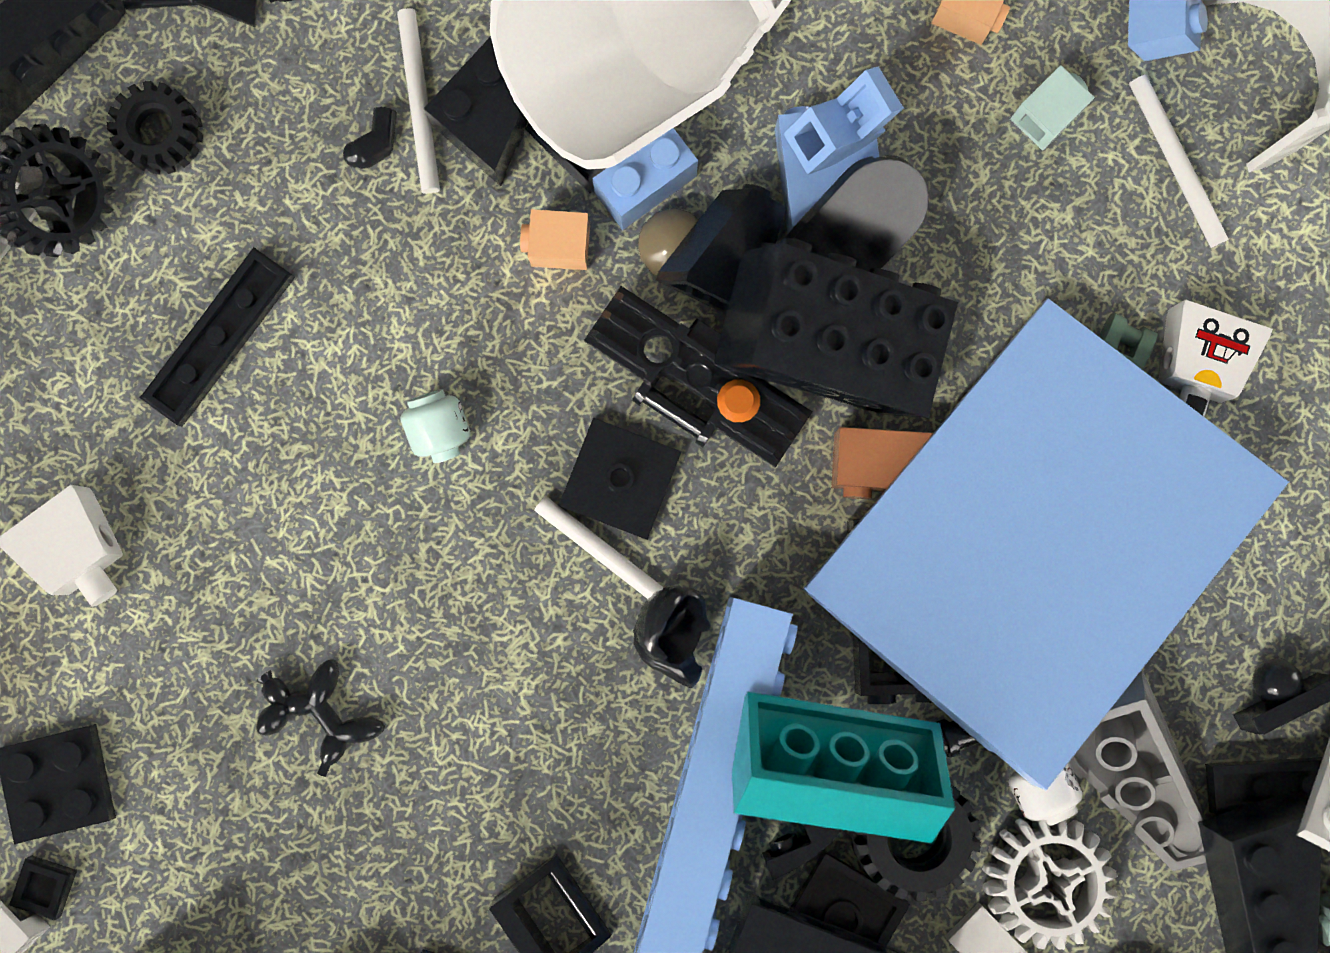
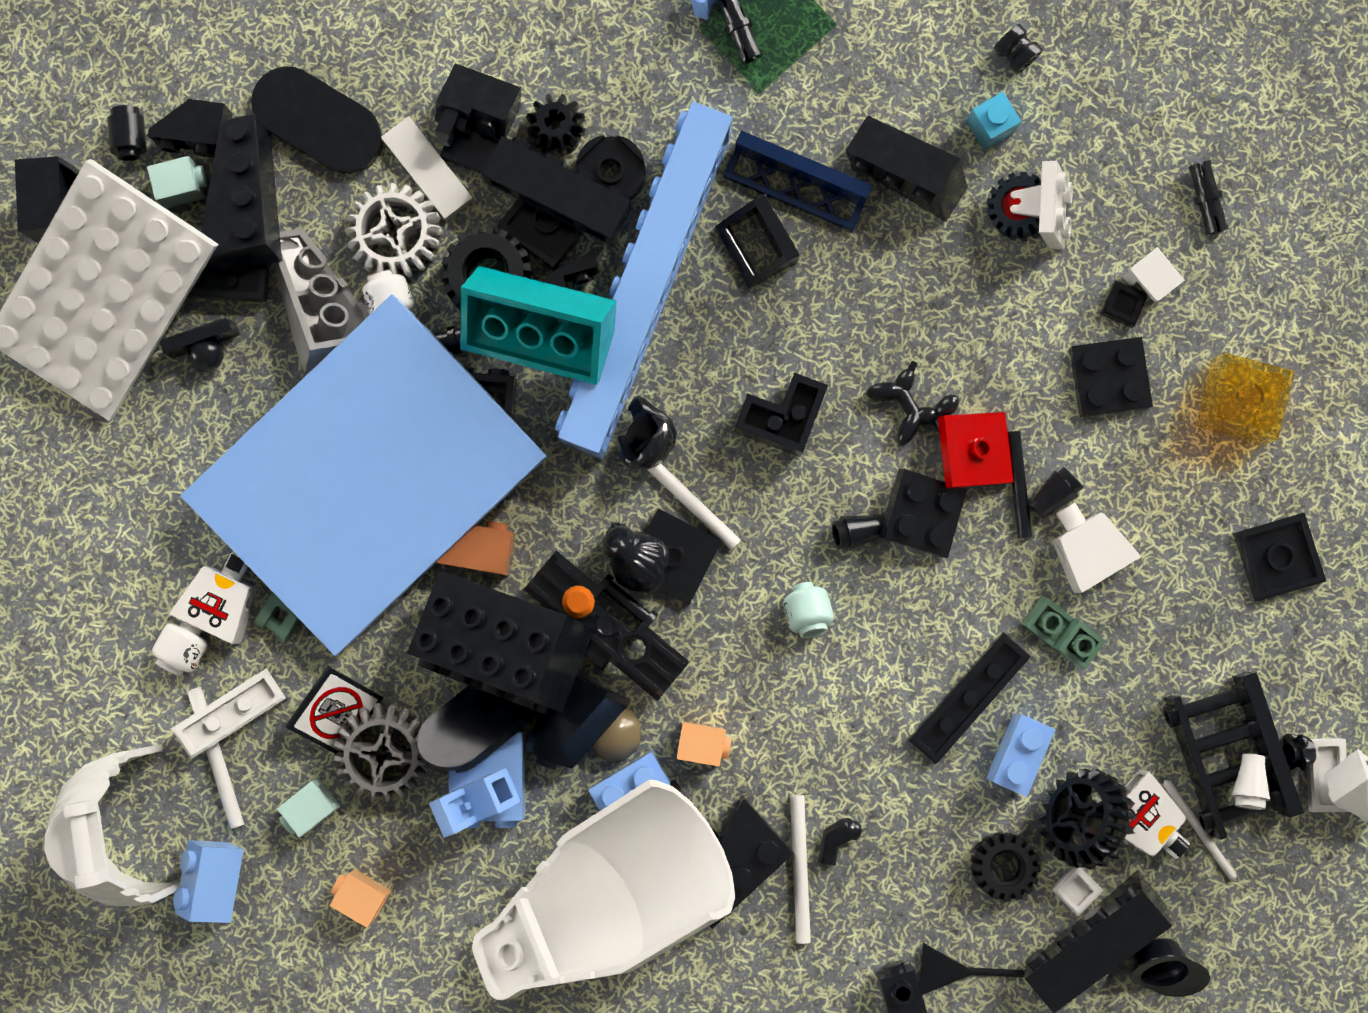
camera: 170 degrees left, 0 degrees up
(64, 108) = (1077, 889): none -> white tile
(99, 433) = (1063, 632): none -> sand green slope
(118, 617) = (1056, 493): none -> black cone
(142, 268) = (1020, 754): none -> light blue brick
(170, 623) = (1019, 486): none -> black bar
(229, 662) = (975, 449): none -> red plate
(294, 570) = (922, 513): none -> black plate
(380, 538) = (855, 531): none -> black cone
(480, 671) = (786, 425): none -> black brick
(669, 469) = (636, 558): none -> black hair
(1007, 183) = (366, 750): none -> light grey gear
(1038, 229) = (329, 706): none -> piece
(1172, 214) = (228, 713): none -> white tile
(1250, 288) = (179, 648): none -> white head

